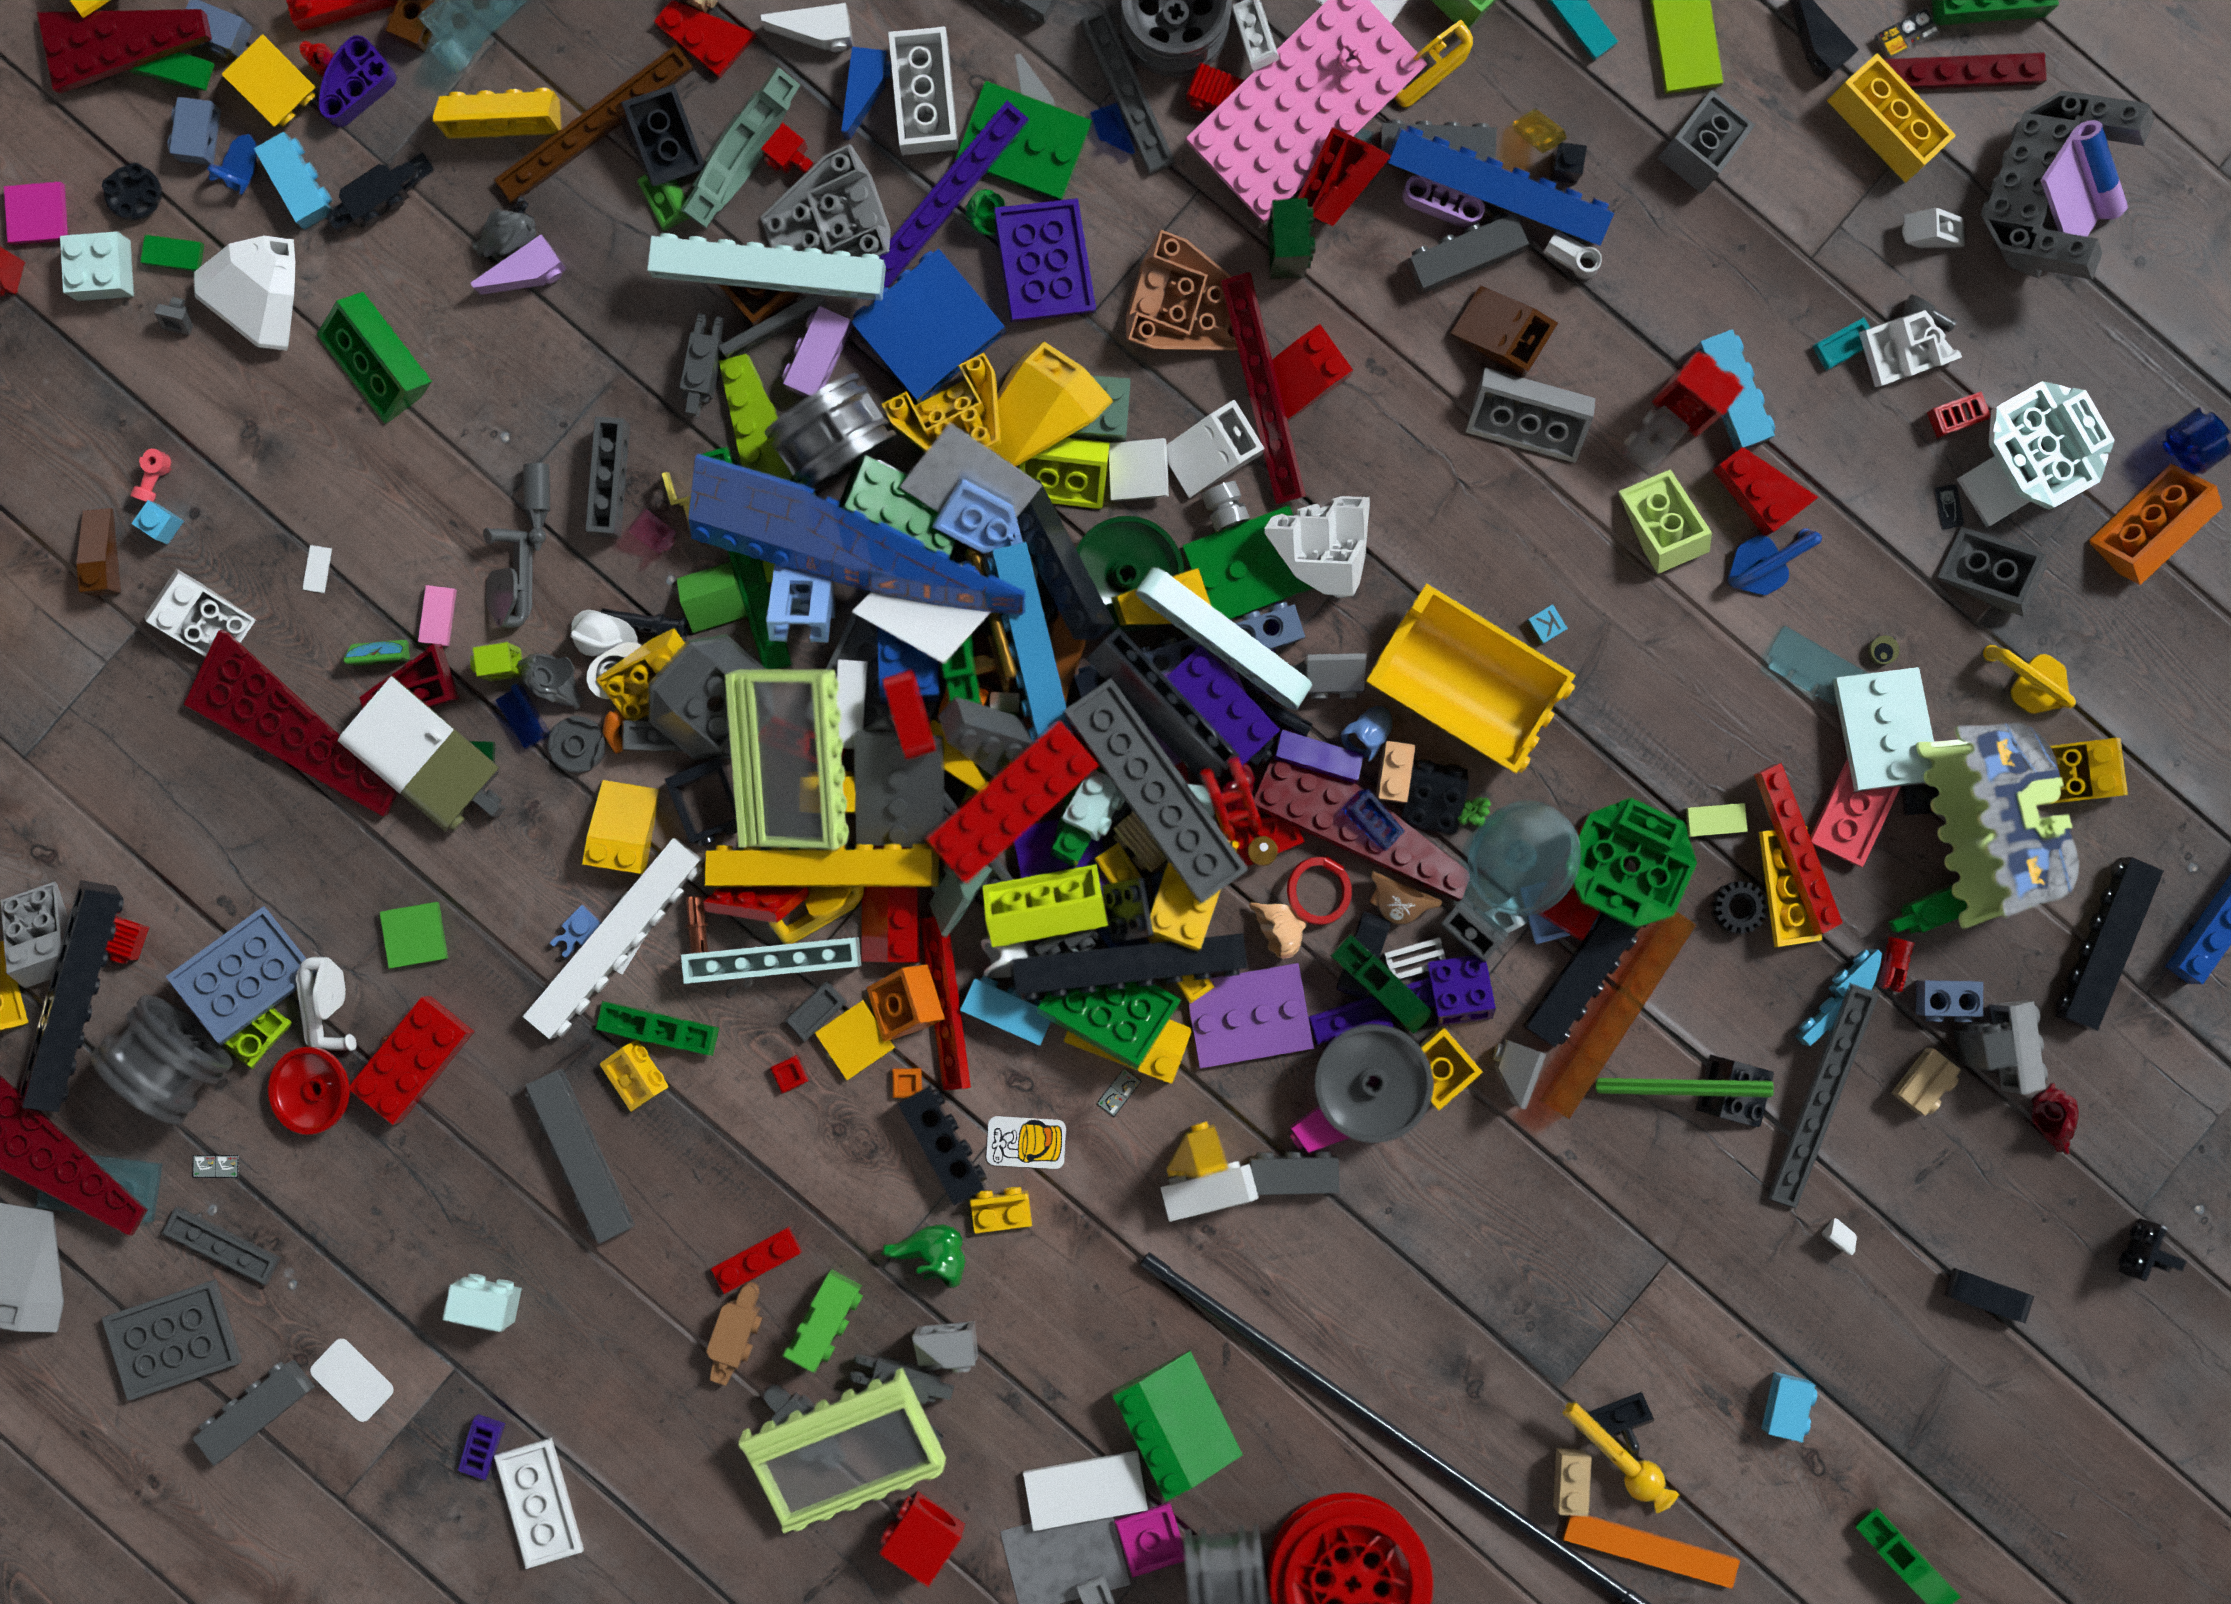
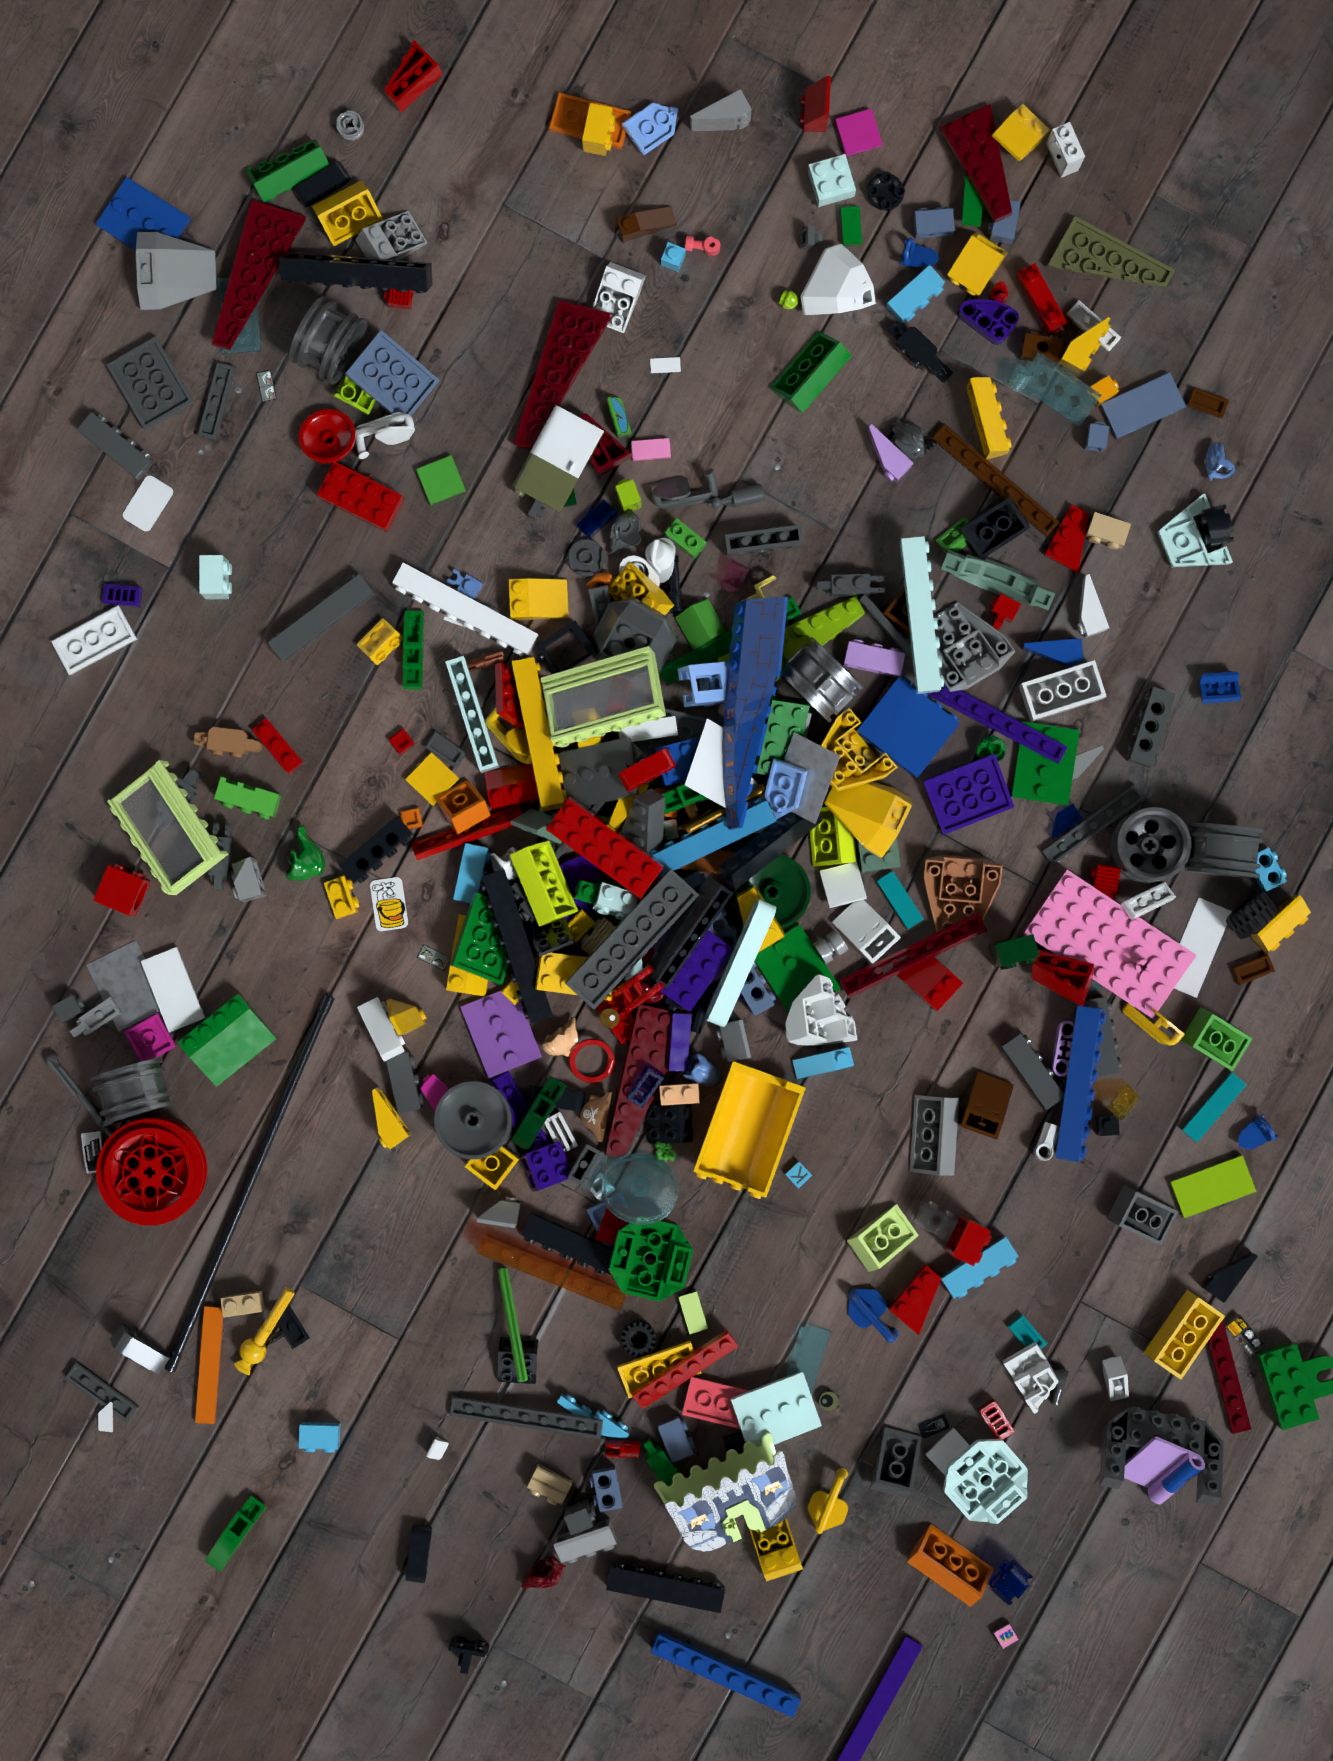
camera: 80 degrees right, 0 degrees up
(260, 367) = (788, 300): none -> lime plate
(580, 591) = (685, 539): none -> bright green brick
(1178, 392) = (900, 900): none -> teal tile
(1352, 1208) = (389, 1123): none -> yellow slope
(1392, 552) = (823, 1062): none -> medium azure slope
(1895, 883) = (675, 1438): none -> sand blue brick

